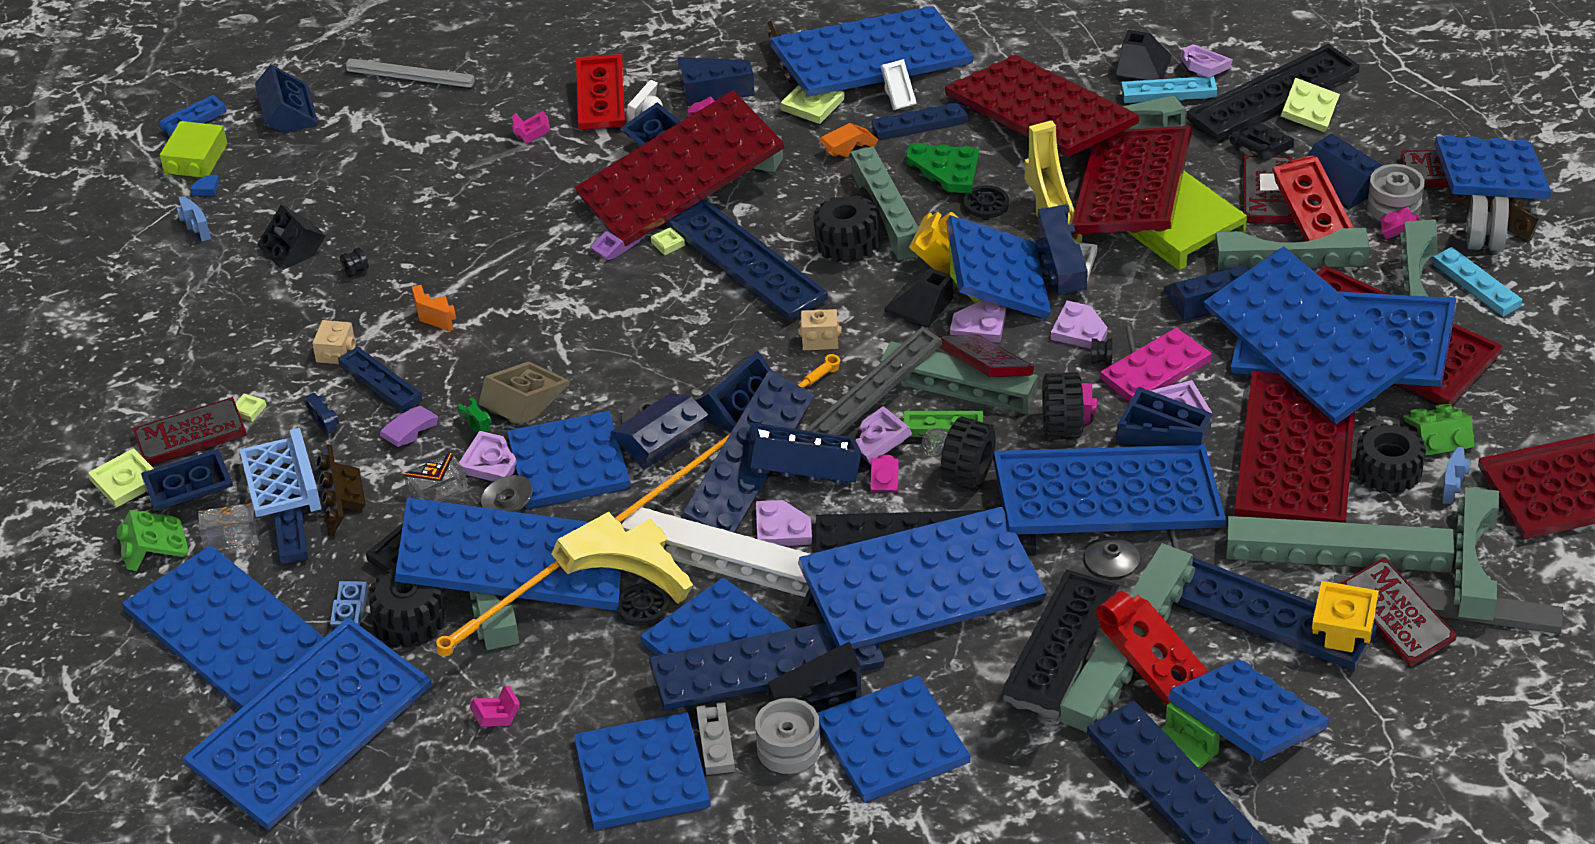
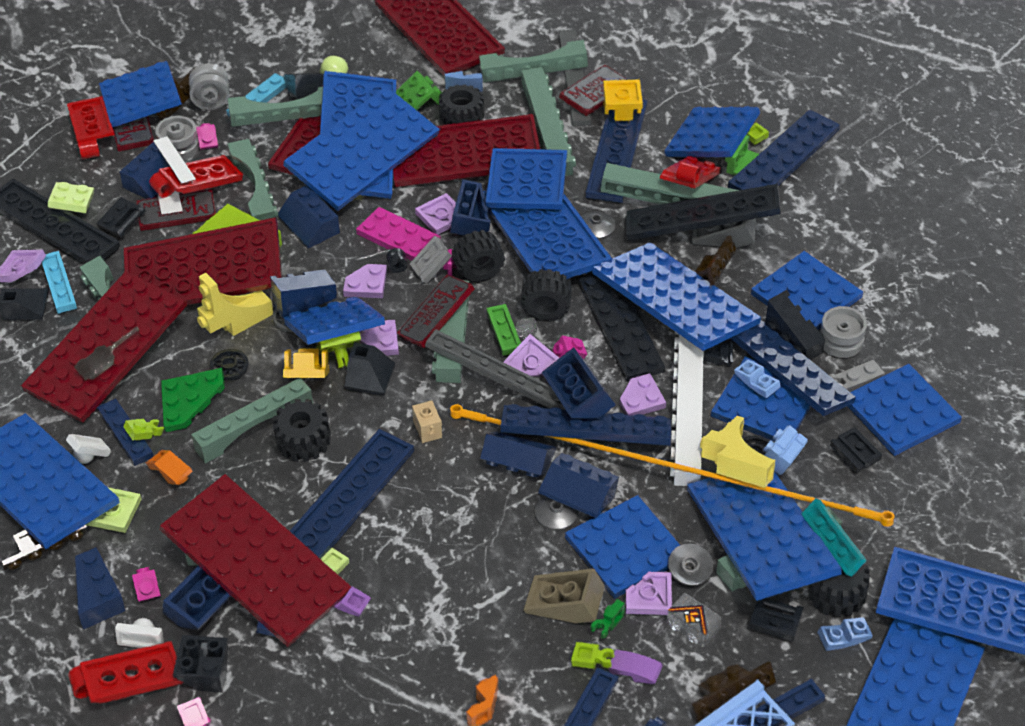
camera: 110 degrees left, 5 degrees up
(432, 590) = (834, 537): none -> teal plate
(440, 392) = (589, 655): none -> lime plate
(496, 710) = (898, 500): dark pink bracket -> none
(581, 131) = (202, 662): none -> black slope
(595, 696) = (855, 450): none -> black plate
(620, 616) = (785, 448): none -> light blue brick
(751, 621) = (754, 376): none -> light blue slope
(908, 123) = (140, 429): none -> lime plate
(967, 637) = (713, 265): none -> dark brown bracket
(1008, 90) = (100, 359): none -> clear smoke piece
(1090, 373) = (430, 259): none -> light grey plate
(1197, 479) = (526, 179): none -> blue plate
(1245, 775) = (757, 133): none -> lime plate
(1333, 172) = (174, 159): none -> white sticker
(1415, 123) = (89, 123): none -> red hinge
(1488, 315) = (303, 84): none -> black slope
(1522, 356) = (334, 64): none -> yellowish green hair

